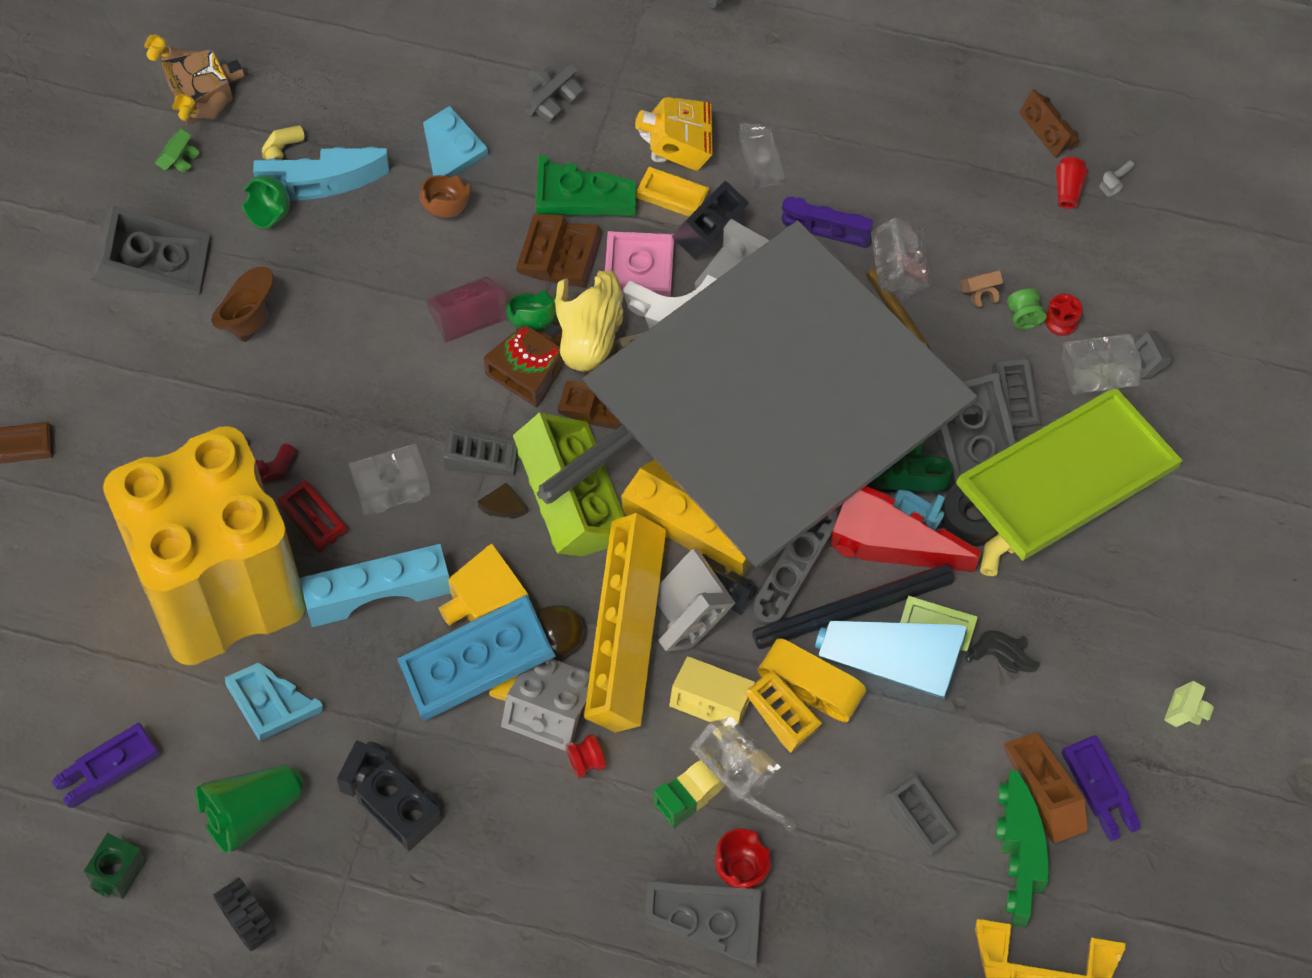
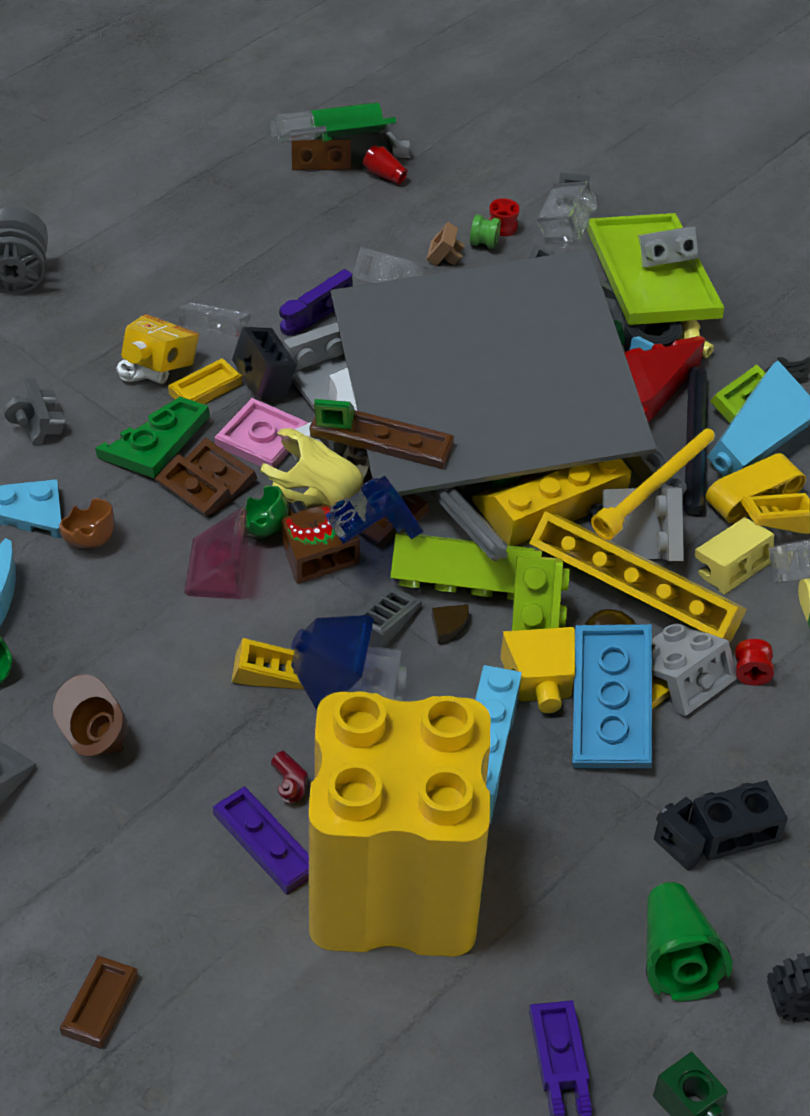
camera: 65 degrees left, 15 degrees down
(268, 701) = (562, 884): medium azure wing -> none
(367, 376) = (256, 674): none -> yellow slope
(393, 428) = (331, 654): none -> clear blue slope
(552, 553) = (539, 593): none -> lime bracket
(559, 387) = (368, 506): none -> clear blue bracket
(634, 296) = (334, 413): none -> green slope
(644, 347) = (391, 439): none -> reddish brown tile
(655, 568) = (610, 520): none -> yellow piece
(1086, 110) = (329, 123): none -> green door
(1088, 469) = (668, 246): none -> light grey hips

